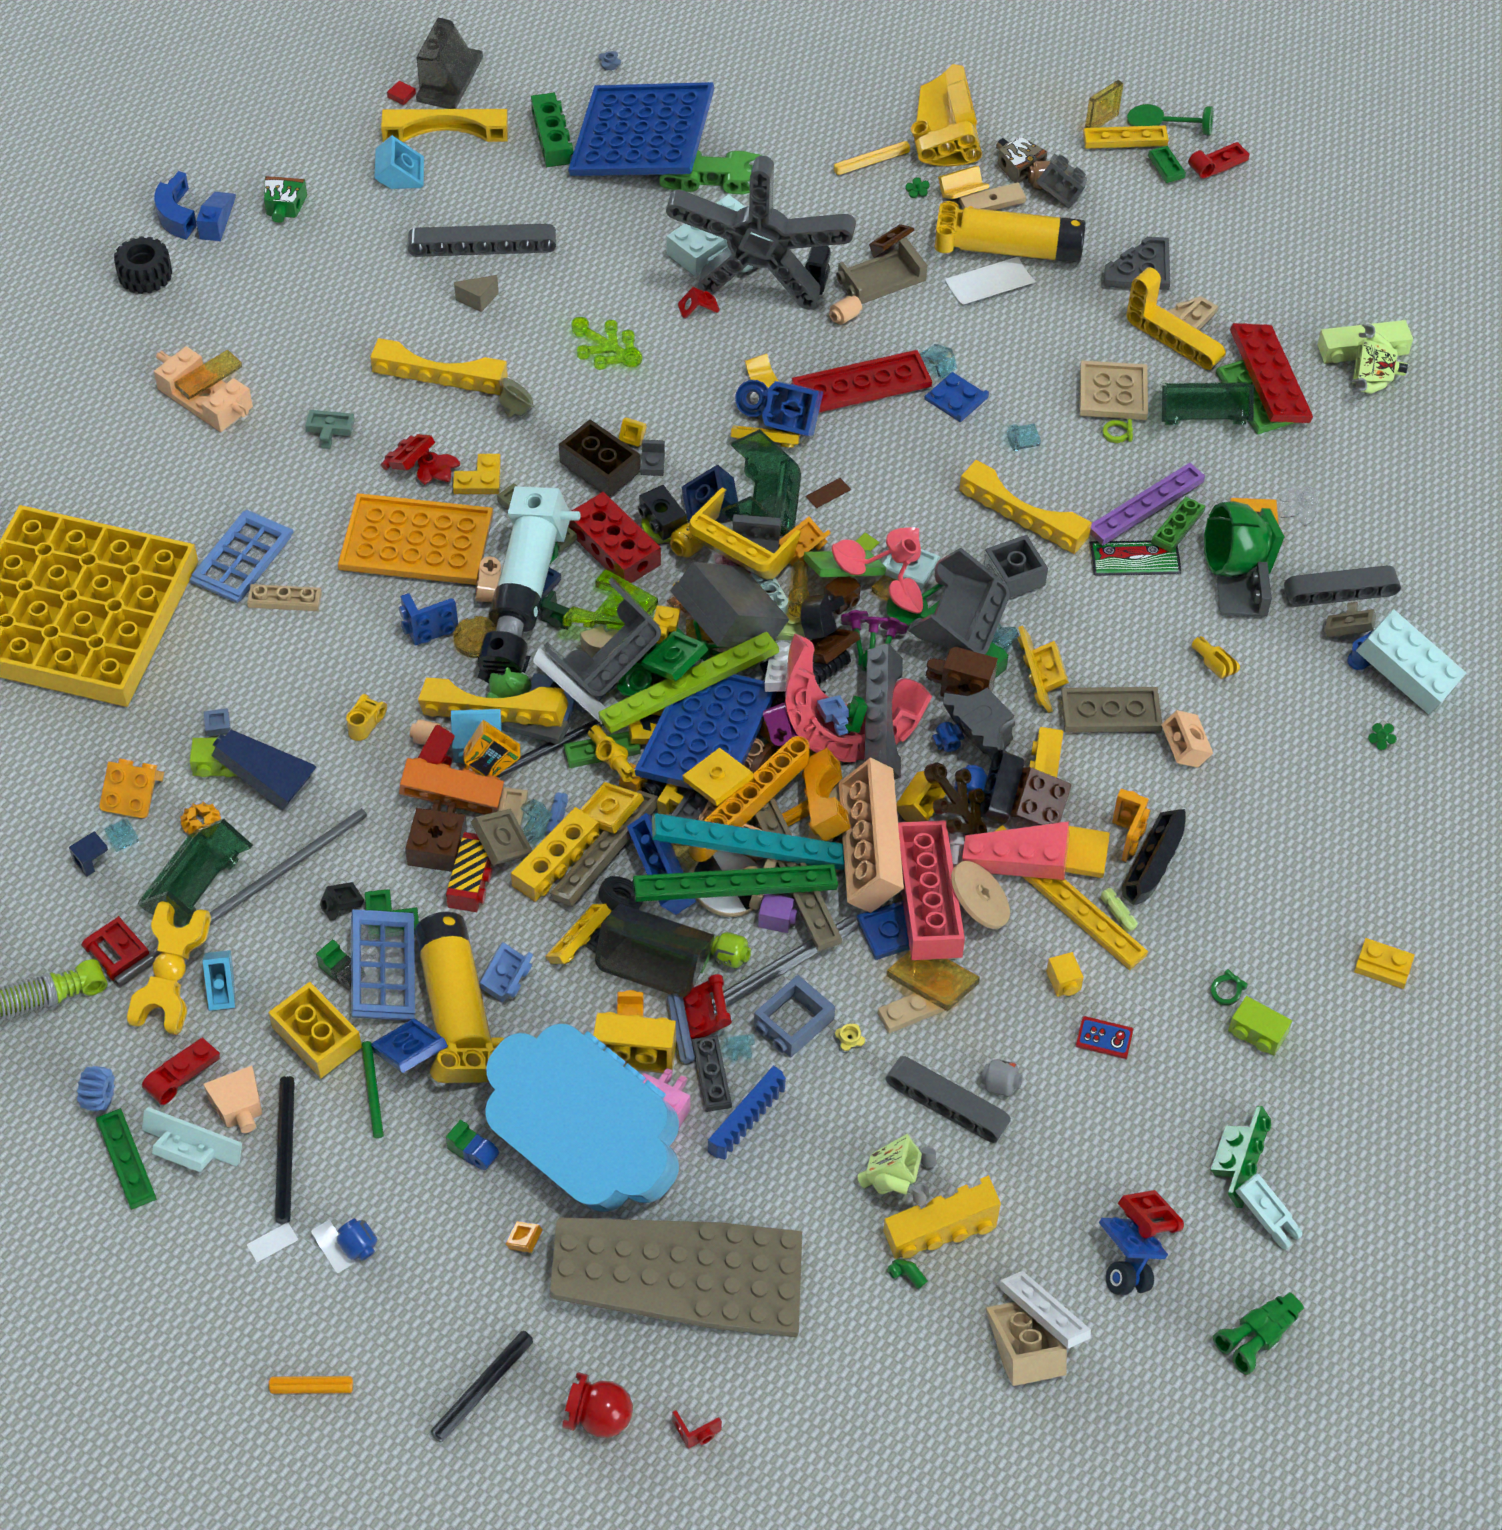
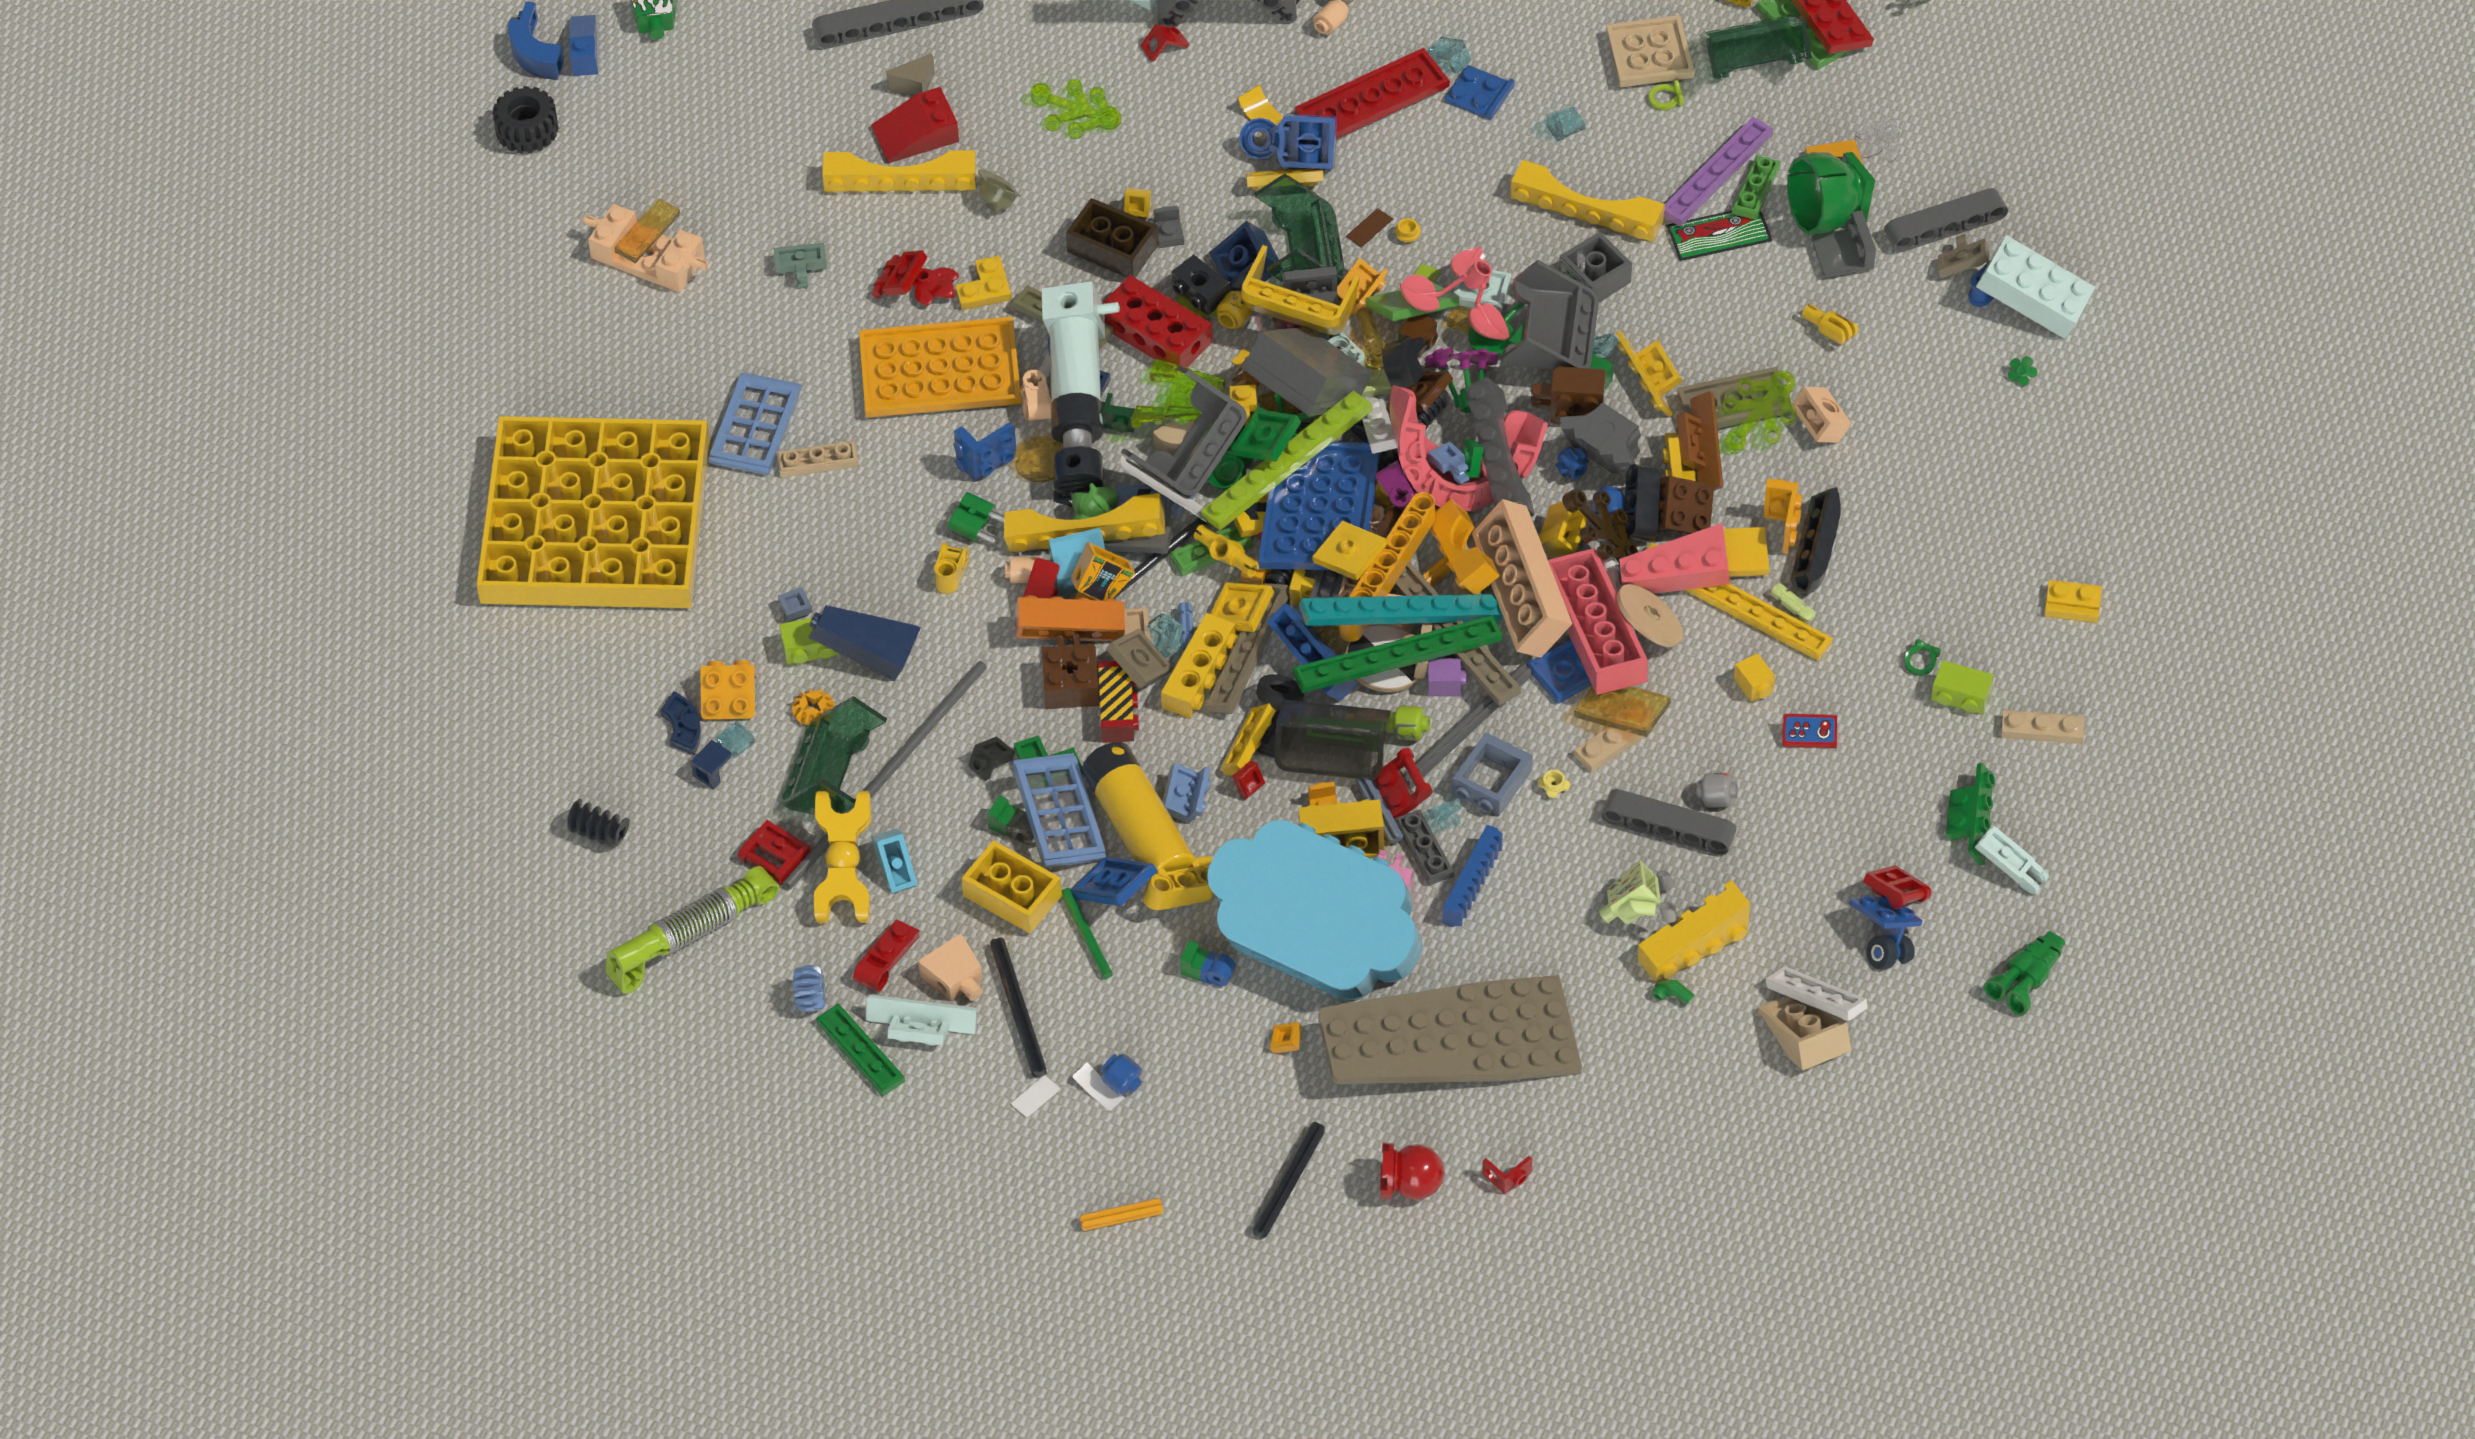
camera: 10 degrees left, 0 degrees up
(83, 810) = (684, 721): none -> dark blue tile
(399, 676) = (973, 516): none -> green piece
(466, 333) = (917, 126): none -> red slope
(567, 972) = (1248, 779): none -> red tile
(859, 501) = (1407, 230): none -> yellow plate
(1069, 740) = (1700, 440): none -> dark orange bracket
(1132, 721) = (1760, 407): none -> clear neon green plant
(1329, 1081) = (2042, 727): none -> tan plate

